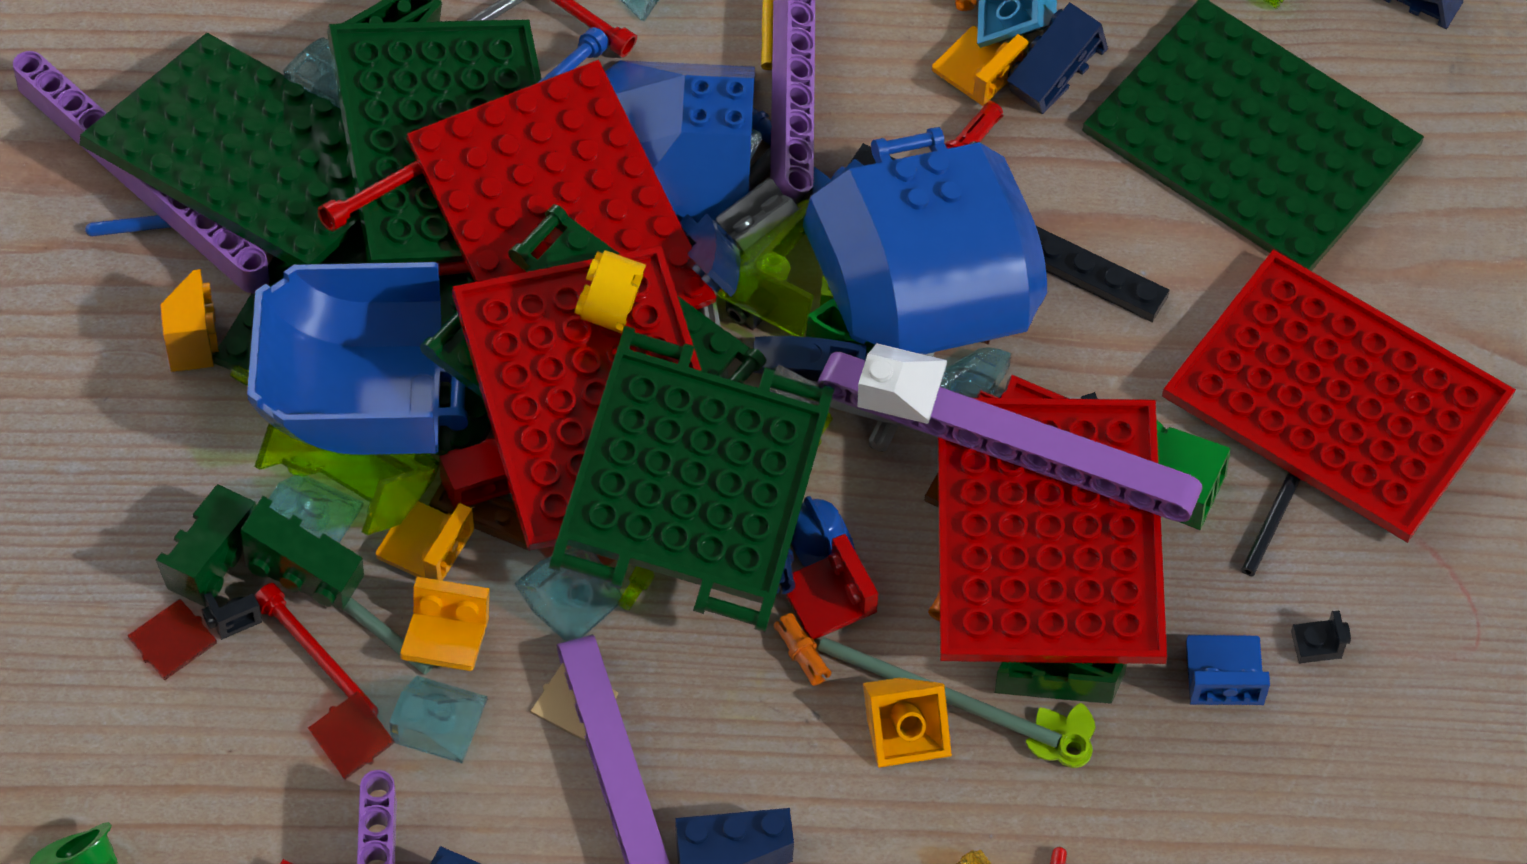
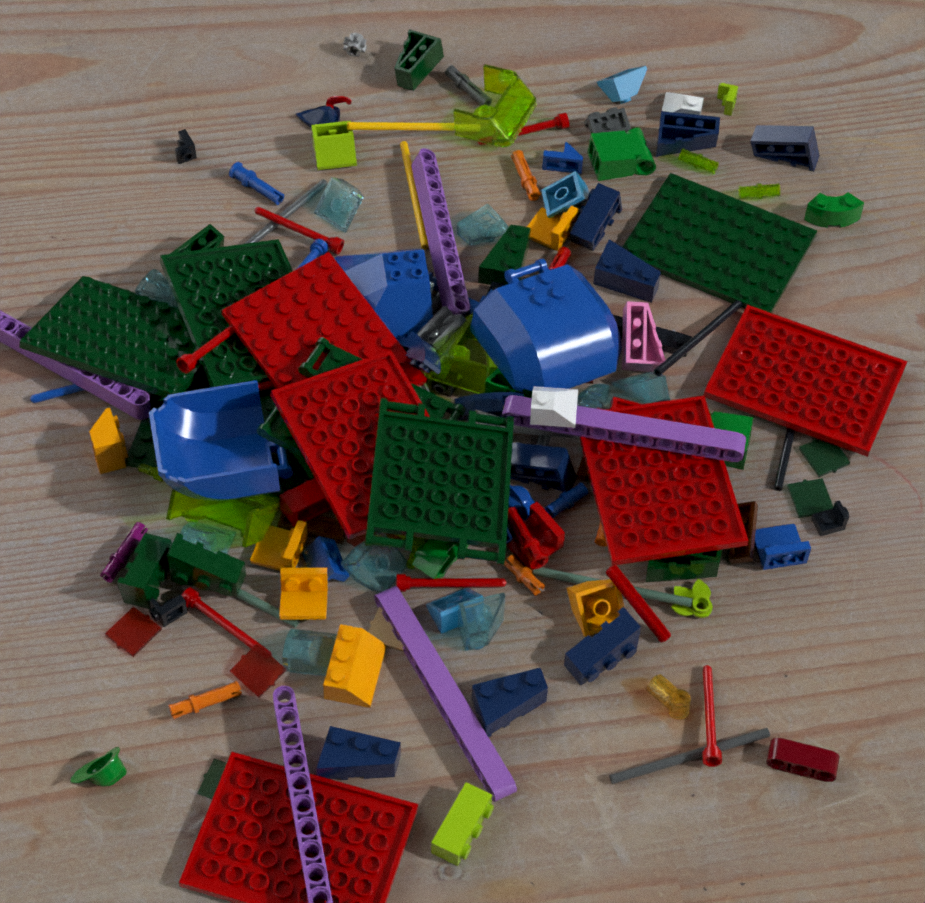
camera: 10 degrees left, 5 degrees down
(173, 517) = (120, 558): none -> magenta pin
(259, 769) = (204, 700): none -> orange pin
(494, 565) = (325, 554): none -> blue panel
(500, 755) = (354, 667): none -> light orange slope
(611, 631) = (405, 582): none -> red piece
(612, 290) = (369, 378): yellow brick -> none
(664, 601) = (436, 557): none -> green brick
(681, 688) = (445, 609): none -> dark azure slope
(714, 714) = (480, 620): none -> clear light blue slope
(819, 603) = (529, 545): none -> red pin
(868, 45) = (481, 226): none -> clear light blue slope
(870, 472) = (542, 466): none -> dark blue wedge
(895, 104) = (507, 254): none -> dark green wedge
(898, 536) = (566, 500): none -> blue pin
(899, 795) = (604, 649): none -> dark blue wedge
(969, 729) = (638, 603): none -> red axle
(1069, 366) = (644, 387): none -> clear light blue slope
(1078, 285) = (640, 340): none -> bright pink wedge
(1084, 163) = (626, 273): none -> dark blue wedge
(1175, 295) = (697, 338): none -> black piece
(1181, 617) = (749, 517): none -> reddish brown tile
(1297, 595) = (810, 497): none -> clear green piece
(1337, 530) = (824, 457): none -> clear green piece
(1343, 51) = (759, 191): none -> clear neon green pin
(1459, 106) = (834, 211): none -> green brick

